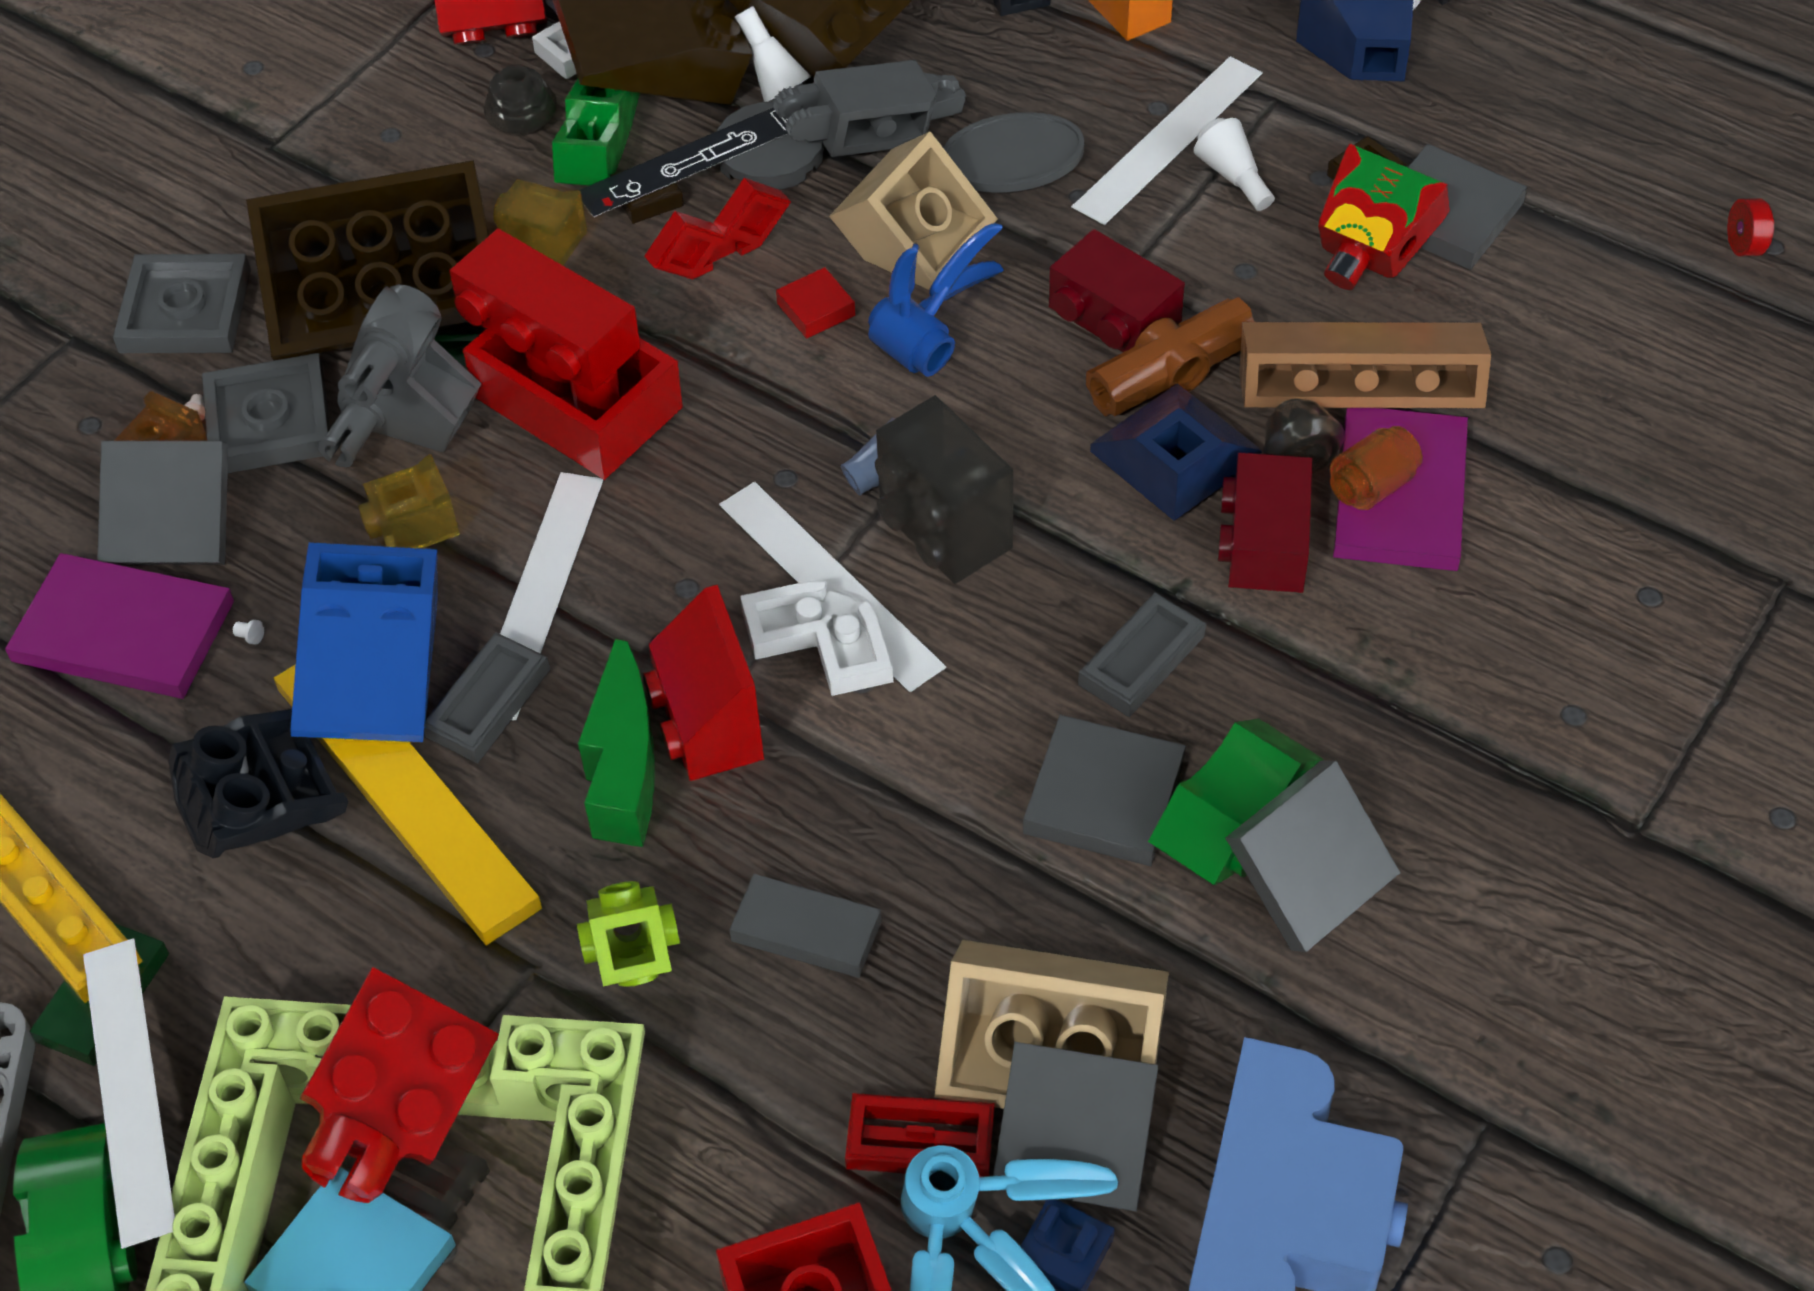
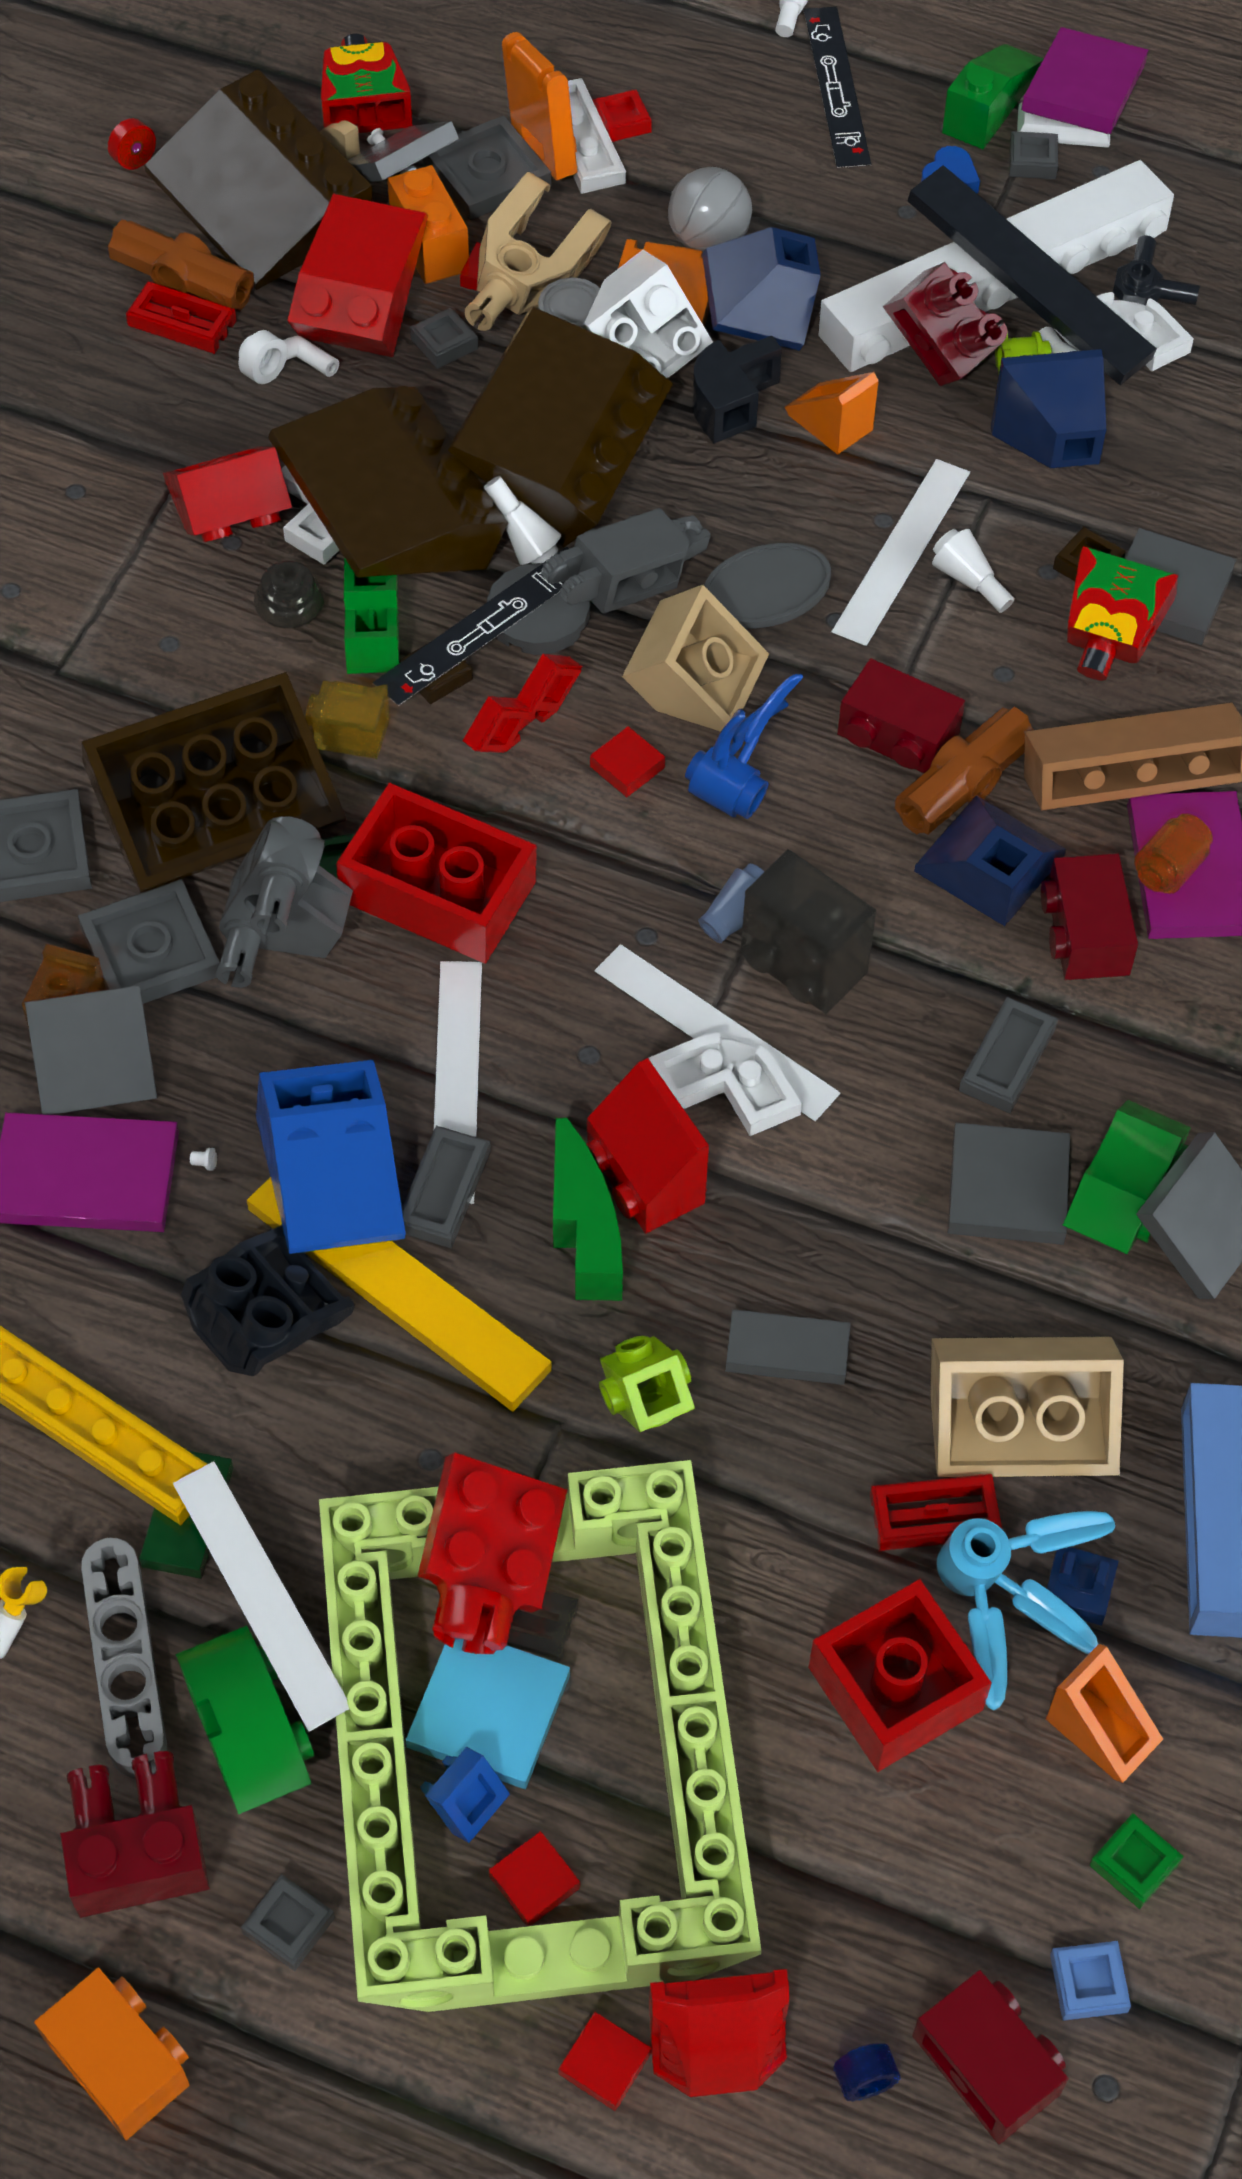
camera: 15 degrees left, 5 degrees up
(197, 403) = (78, 945): white piece -> none
(409, 507) = (326, 1034): clear yellow window -> none
(545, 309) = (408, 816): red brick -> none
(1080, 1111) = (1067, 1469): dark grey tile -> none
(1304, 430) = (1099, 828): clear smoke cone -> none

